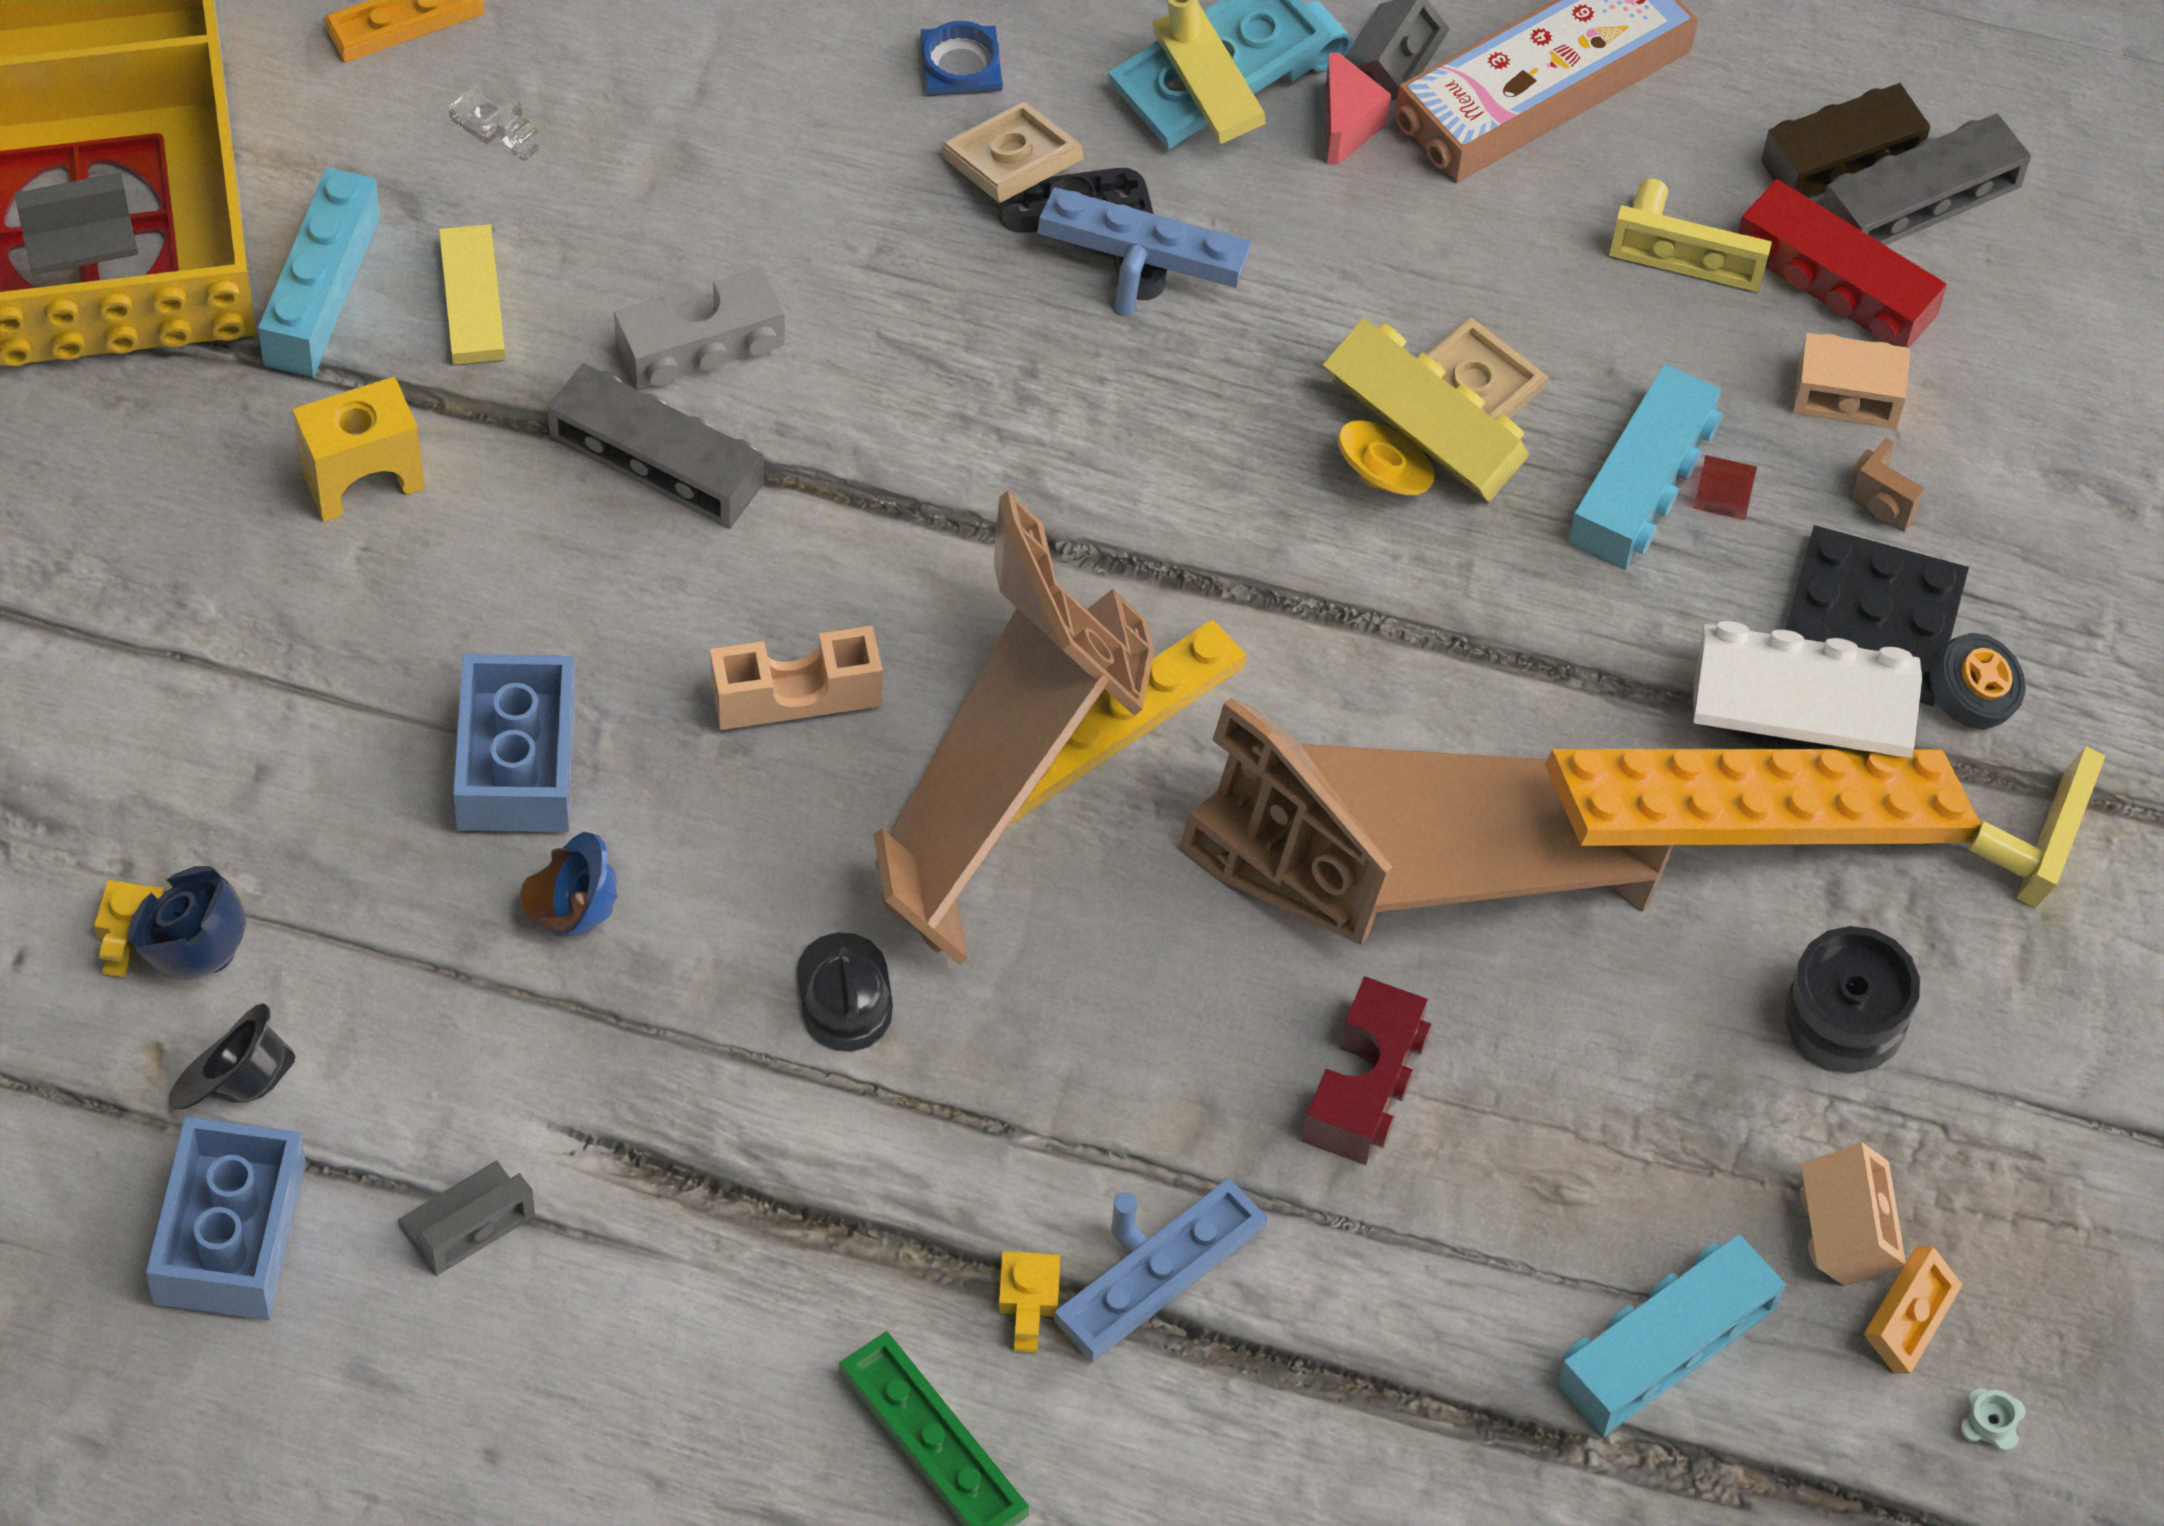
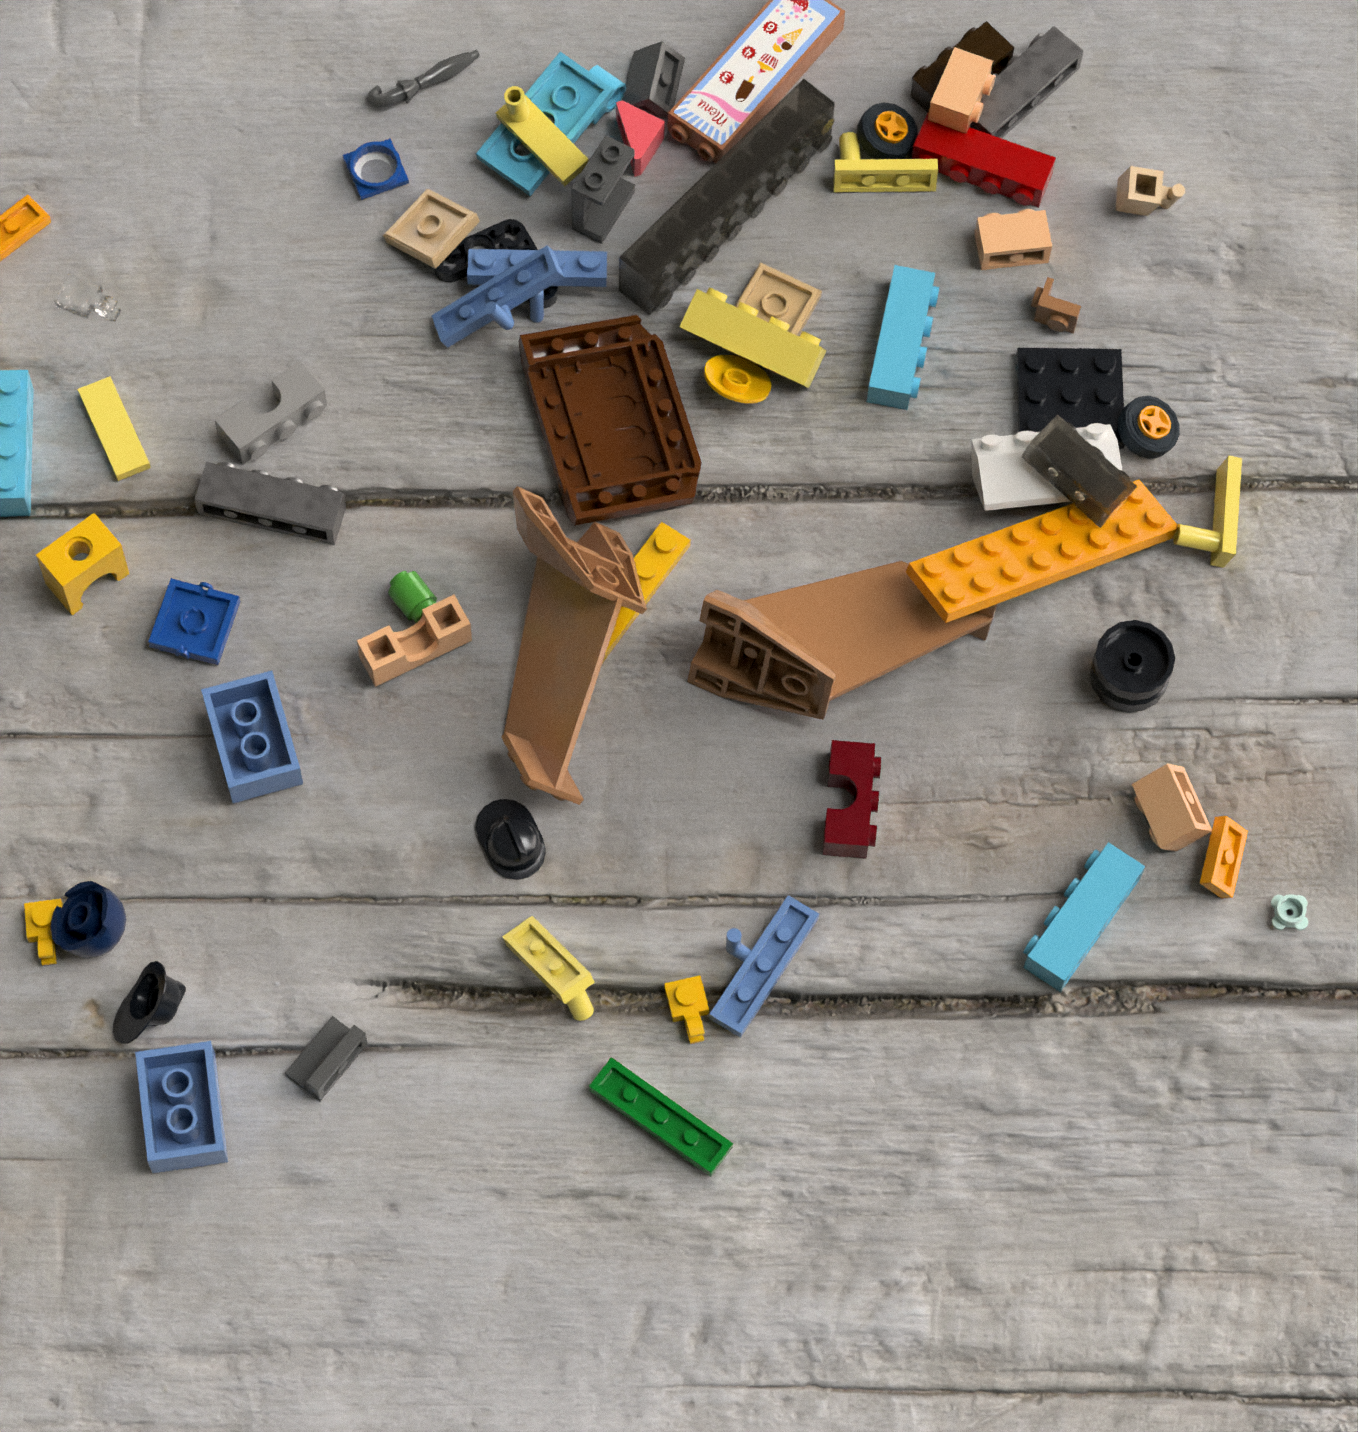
camera: 15 degrees left, 10 degrees up
(491, 572) = (194, 621): none -> blue plate
(573, 890) = (321, 824): blue piece -> none
(811, 611) = (411, 594): none -> bright green brick
(844, 1179) = (552, 965): none -> light yellow piece
(1073, 256) = (497, 297): none -> medium blue plate
(1185, 463) = (611, 419): none -> reddish brown slope
(1263, 160) = (600, 191): none -> dark grey panel
(1446, 214) = (726, 197): none -> clear smoke brick
(1709, 190) = (899, 129): none -> black wheel
(1725, 487) = (954, 336): clear red tile -> none
(1833, 157) = (961, 90): none -> light nougat brick
(1849, 698) = (1079, 471): none -> clear smoke brick
(2063, 361) = (1142, 191): none -> tan brick

